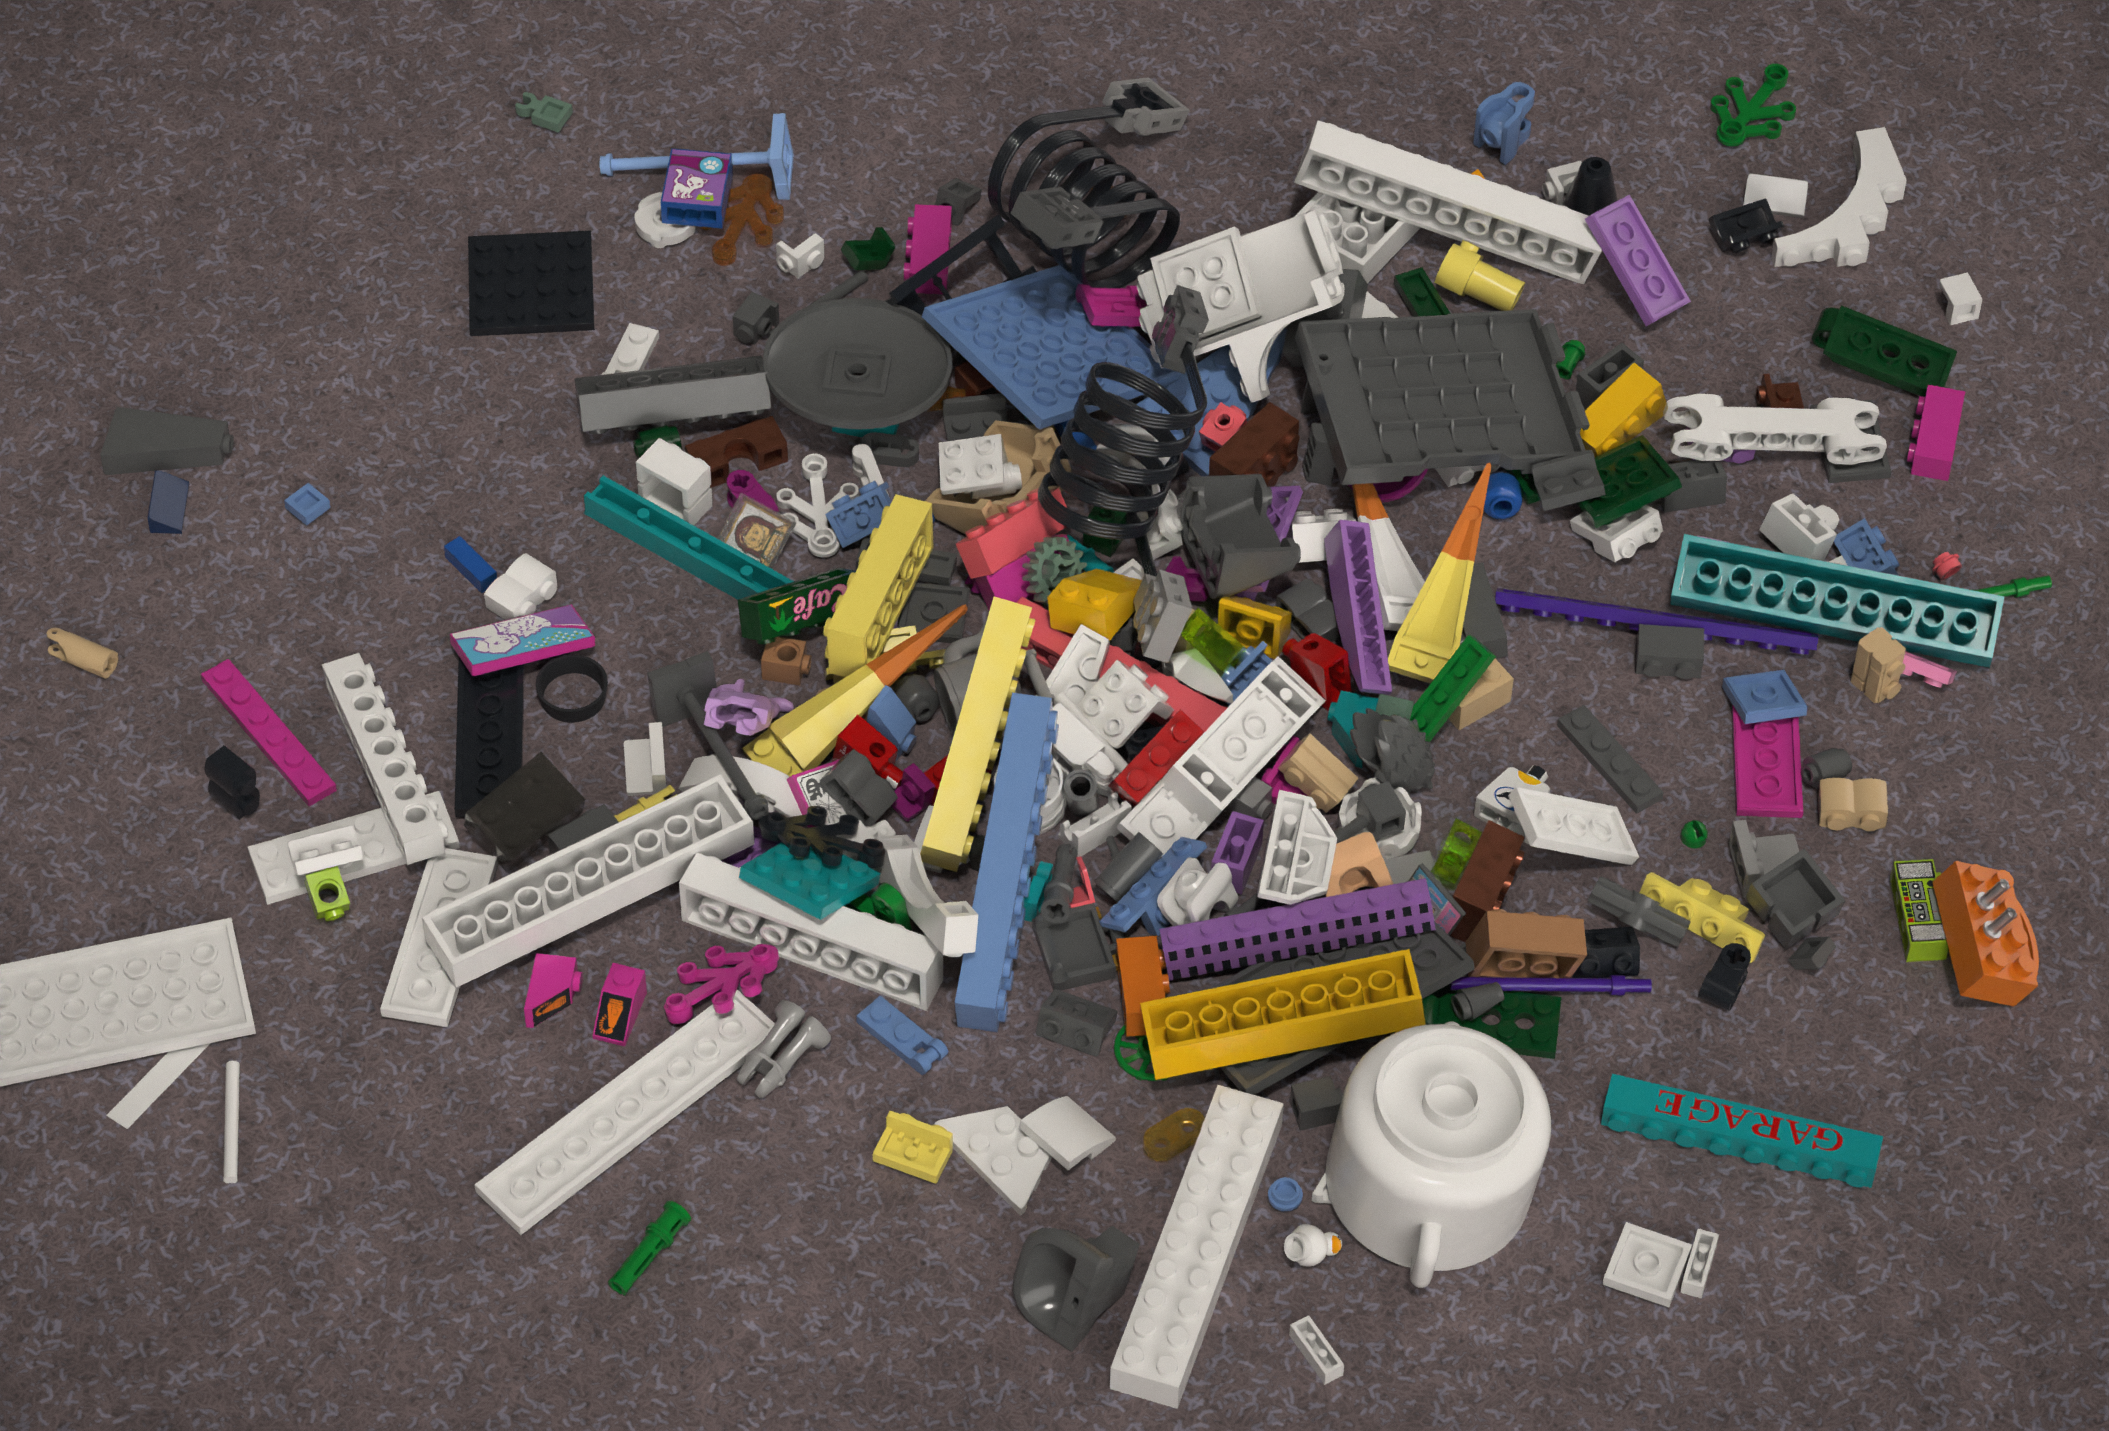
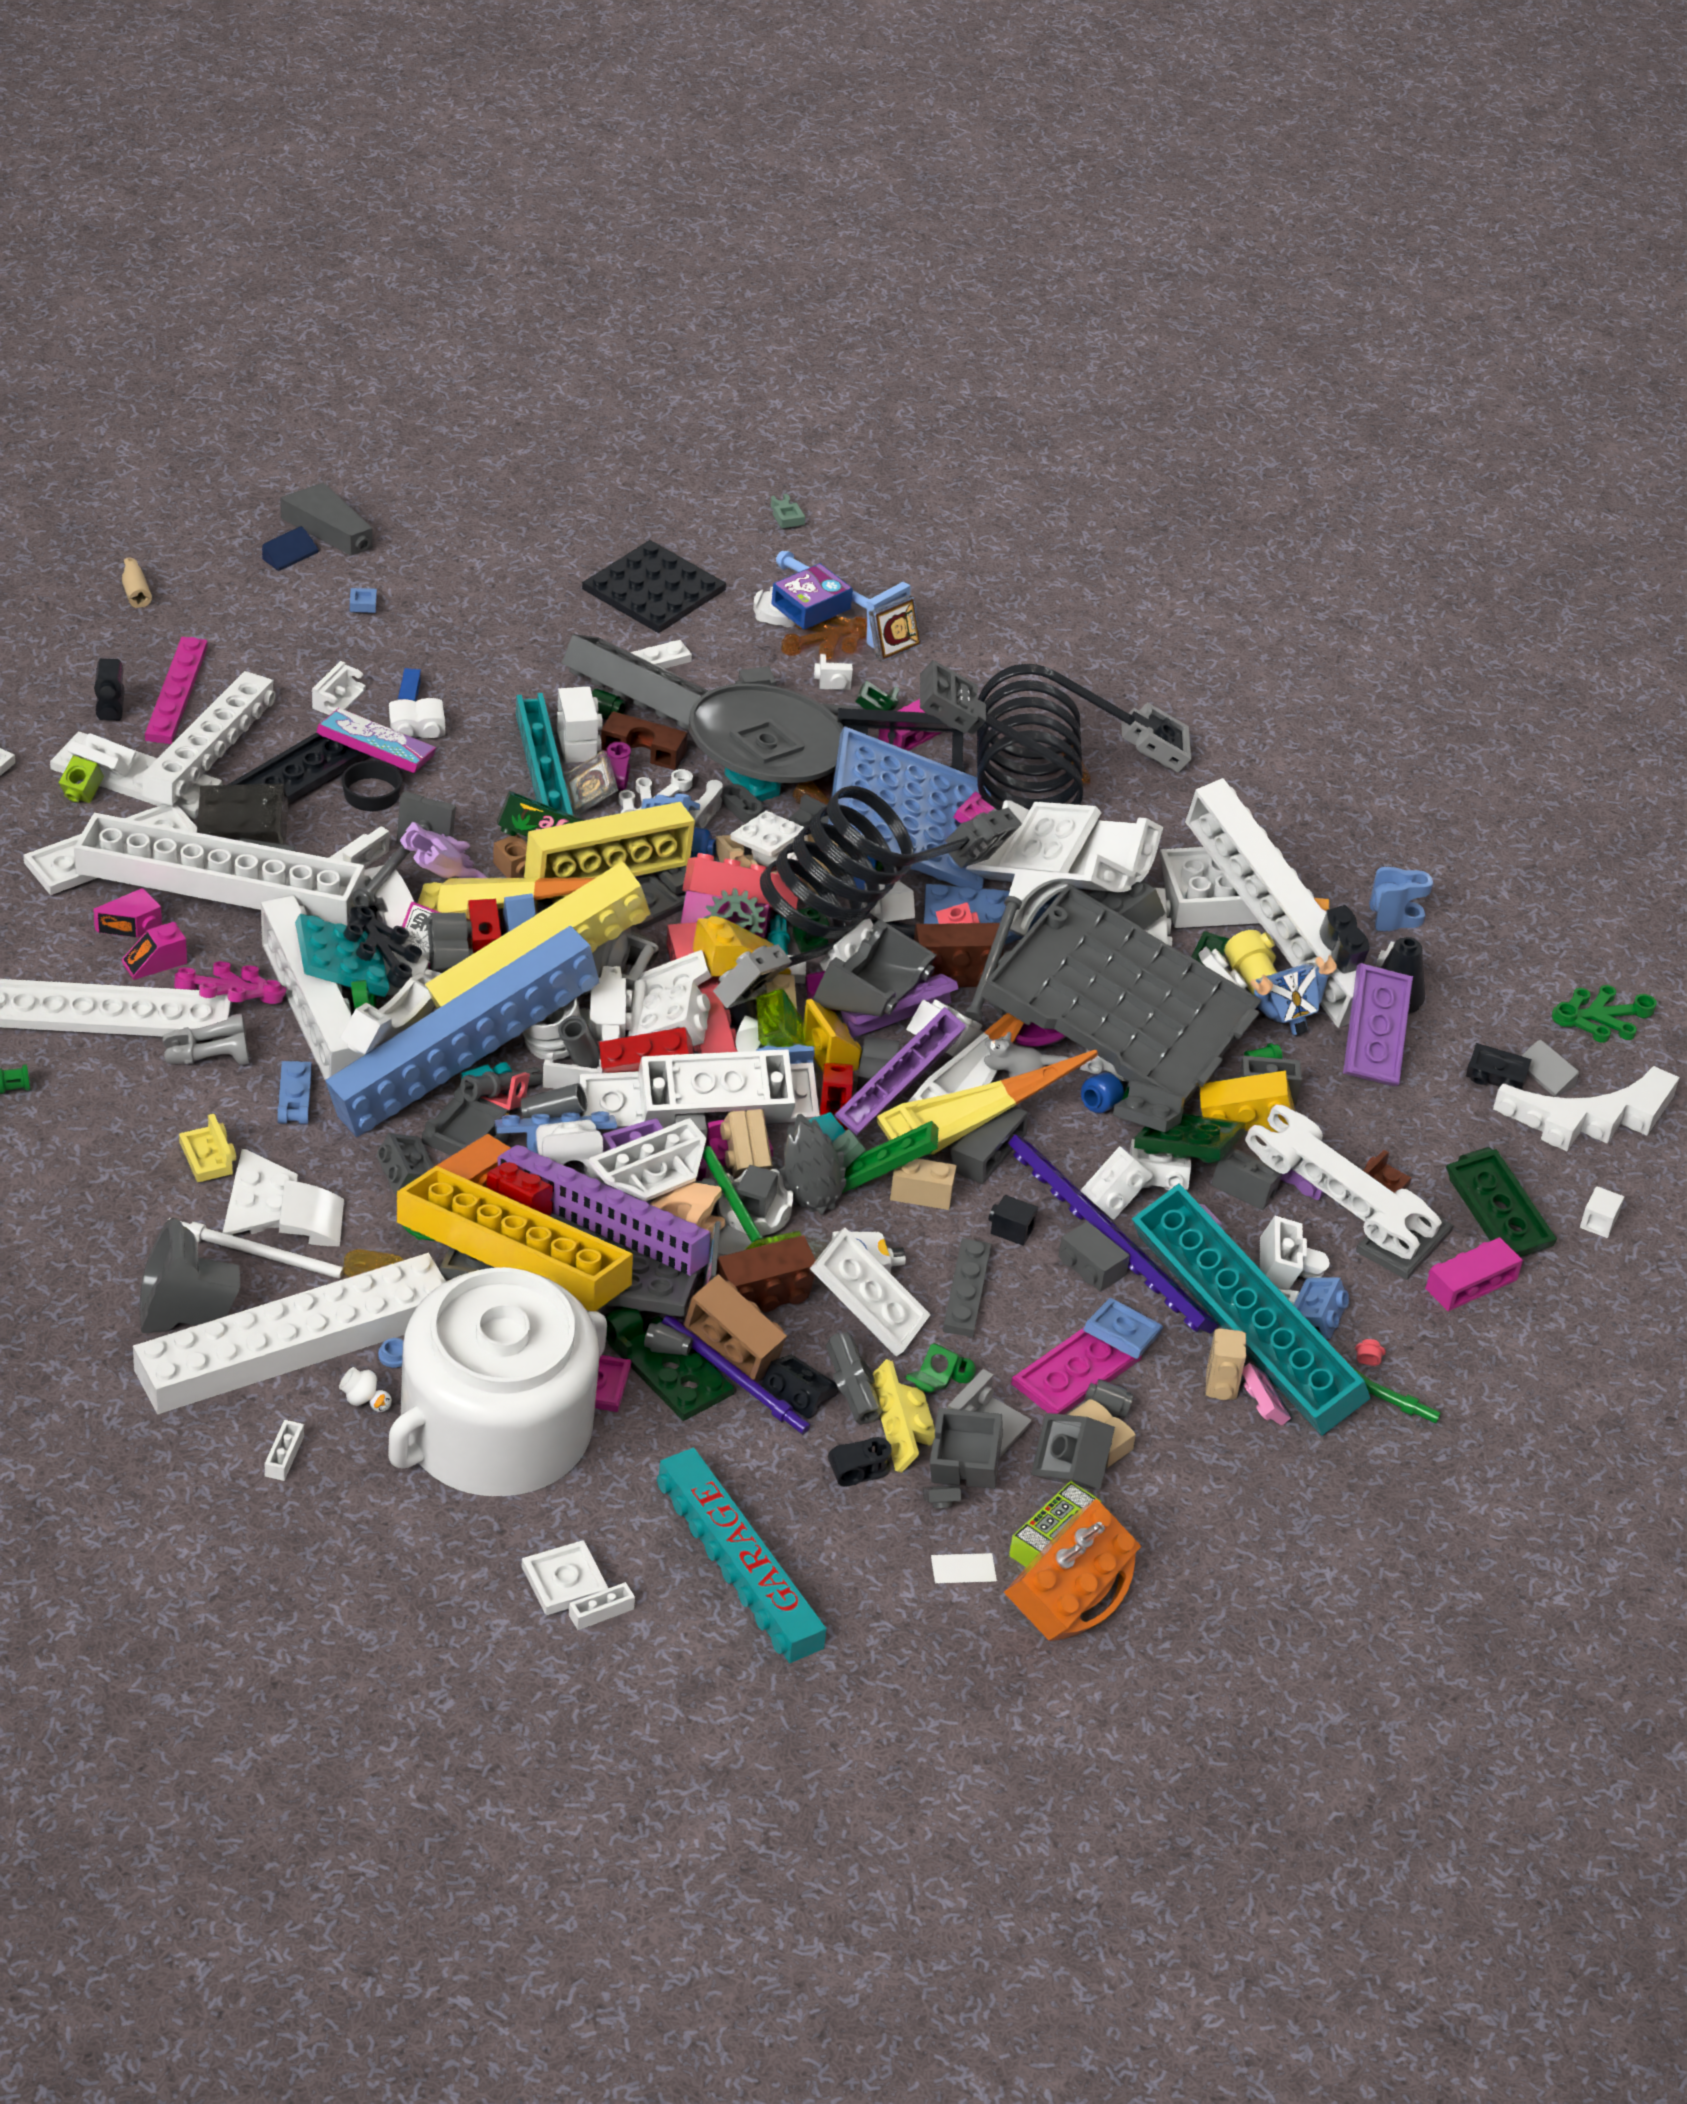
camera: 40 degrees right, 10 degrees down
(414, 616) = (337, 689): none -> white hinge
(803, 166) = (894, 628): none -> tile
(1000, 1225) = (202, 1233): none -> white bar
(1214, 966) = (521, 1187): none -> red brick
(1277, 378) = (1012, 904): none -> dark grey bar
(1380, 833) = (731, 1194): none -> green bar
(1415, 519) = (1015, 1058): none -> light grey animal
(1466, 304) = (1217, 963): none -> white plate
(1543, 279) = (1294, 993): none -> torso
(1558, 202) = (1344, 939): none -> black brick
(1576, 669) = (1013, 1219): none -> black brick
(1614, 570) = (1116, 1183): none -> white bracket
(1683, 863) = (928, 1378): none -> green bracket
(1864, 835) = (1073, 1450): none -> dark grey slope
(1889, 1000) = (963, 1568): none -> white sticker

